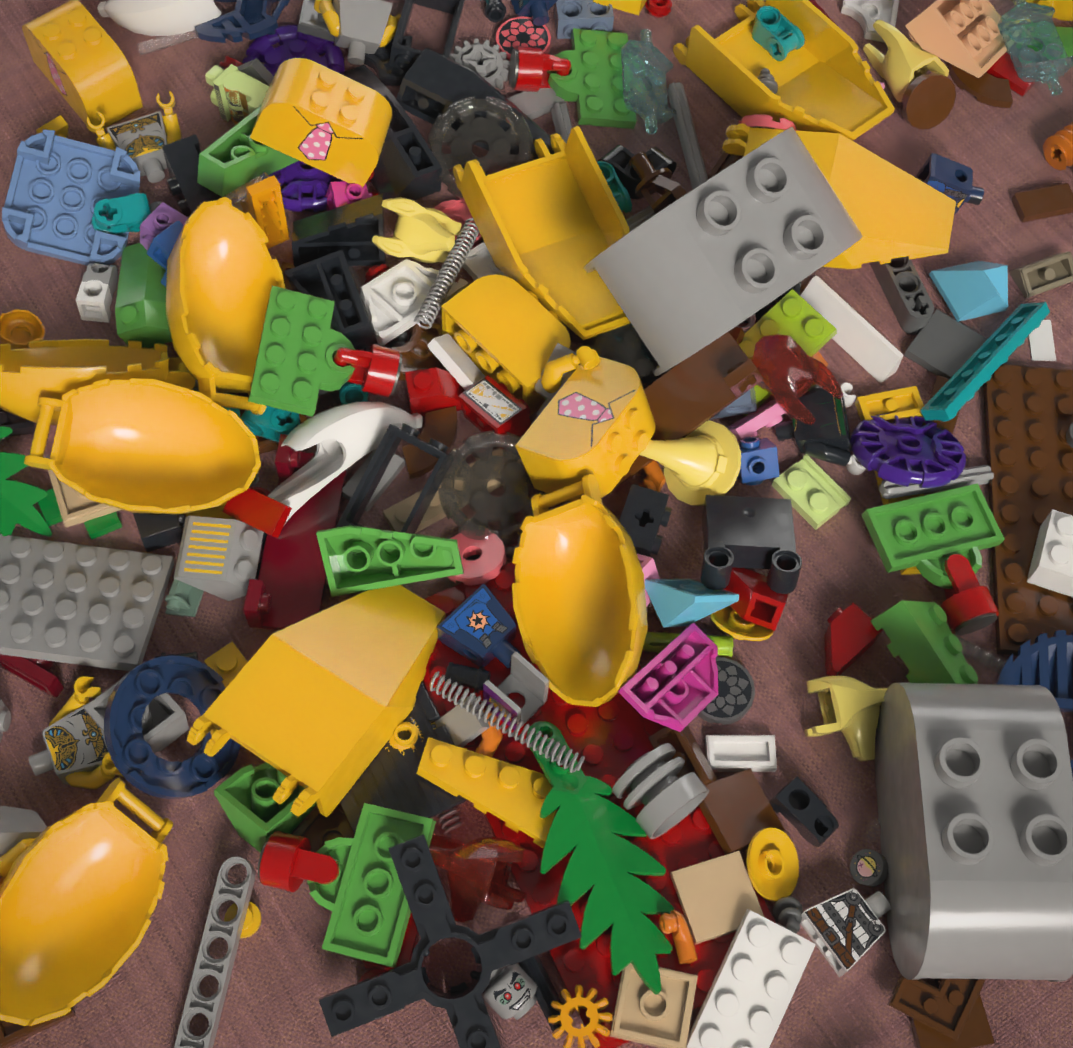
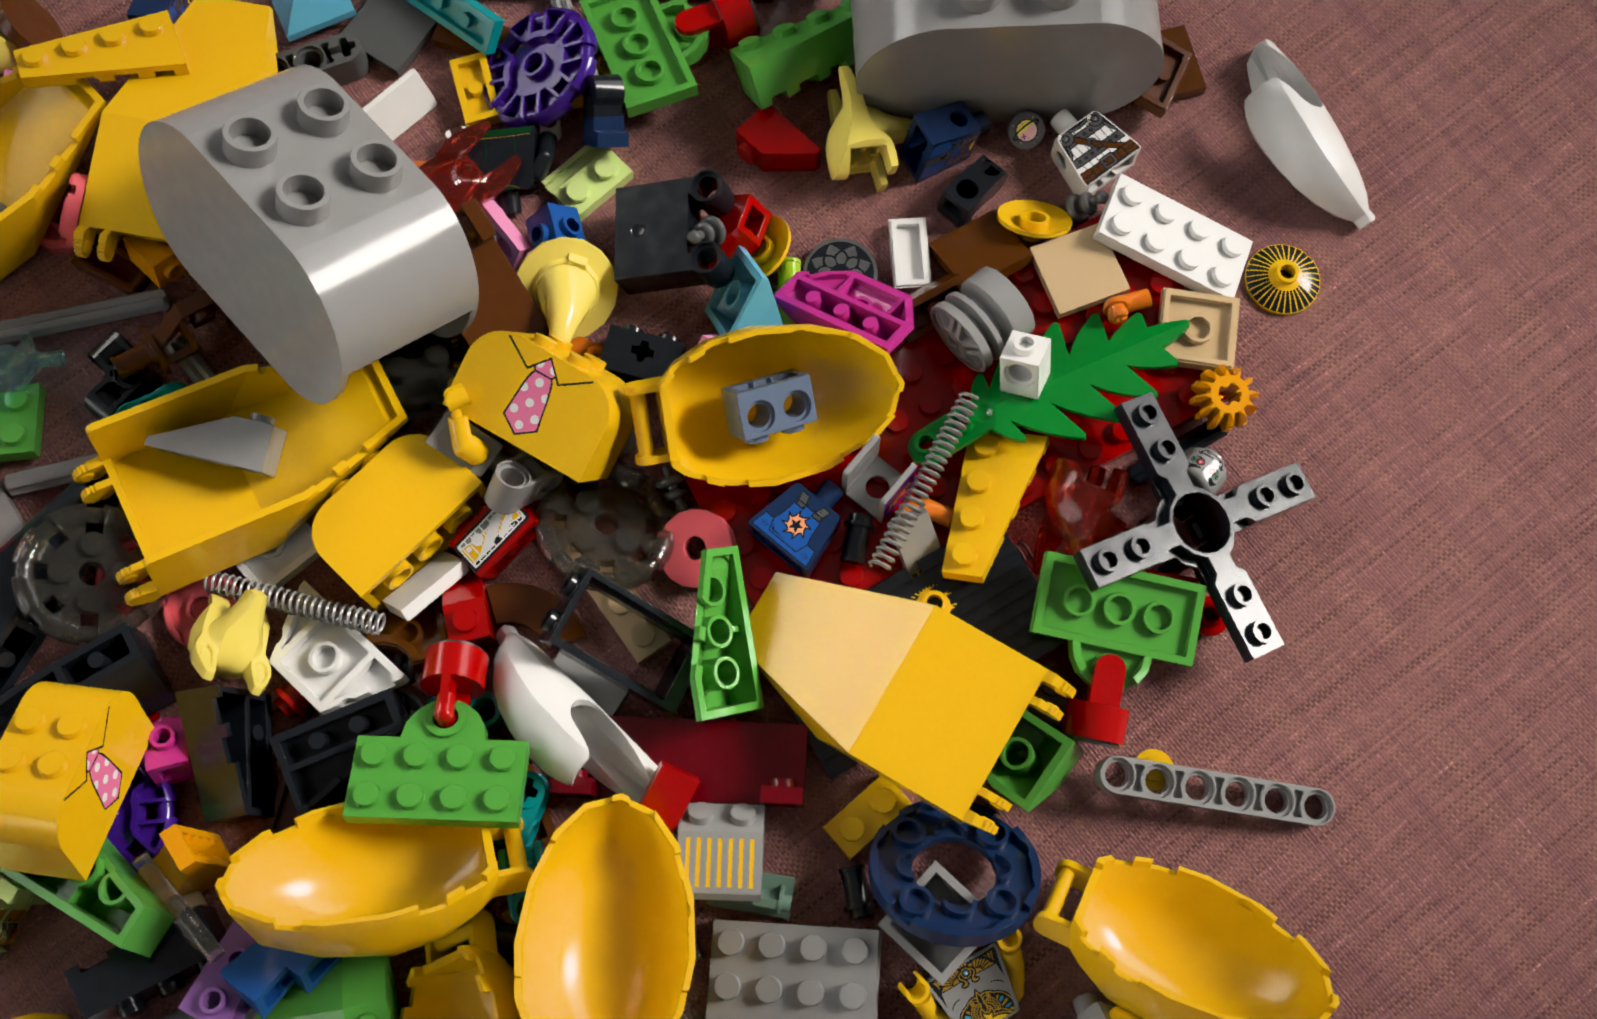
camera: 90 degrees left, 10 degrees up
(524, 418) = (520, 483): none -> light grey piece
(569, 232) = (231, 442): none -> light grey slope
(589, 597) = (769, 397): none -> sand blue brick
(610, 818) = (1025, 364): none -> white brick
(746, 566) = (708, 229): none -> dark grey hair
(854, 786) = (941, 139): none -> dark blue torso
(862, 494) = (604, 112): none -> leg
(893, 141) = (122, 48): none -> yellow wing

